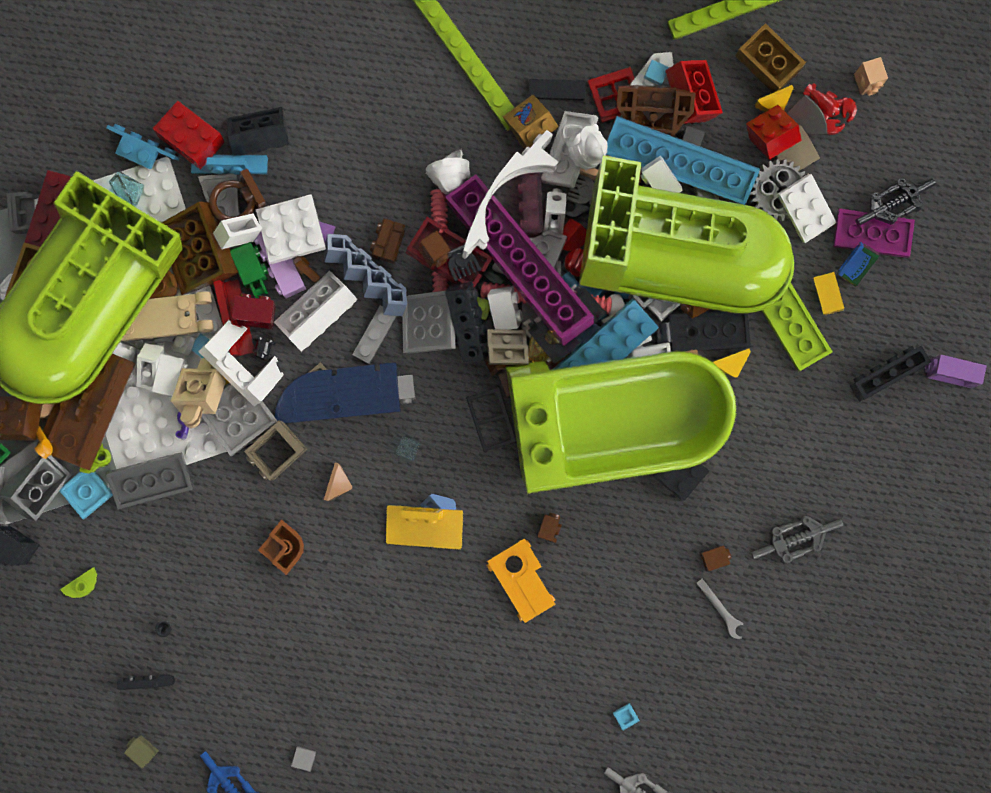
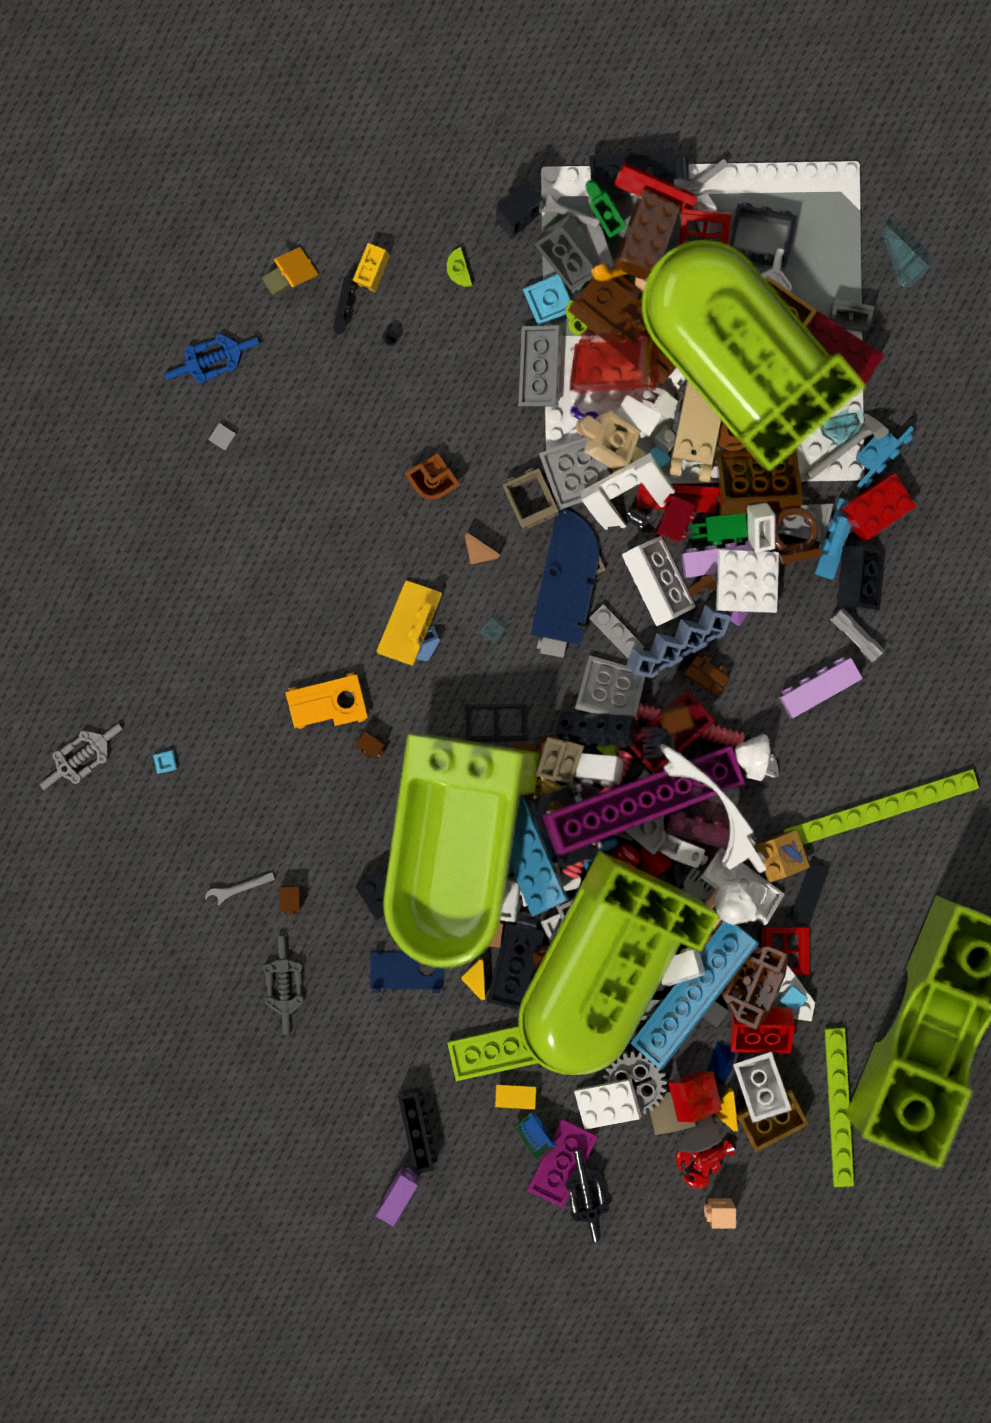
camera: 110 degrees right, 5 degrees up
(102, 666) = (371, 267): none -> yellow hinge
(117, 163) = (871, 426): none -> light grey piece
(122, 738) = (296, 267): none -> light orange piece
(128, 411) = (614, 366): none -> clear red windscreen
(303, 130) = (848, 625): none -> light grey axle
(368, 136) = (821, 687): none -> lavender brick
(734, 119) = (721, 1062): none -> clear blue slope
(745, 74) = (762, 1087): none -> white slope
(749, 435) = (401, 971): none -> dark blue piece

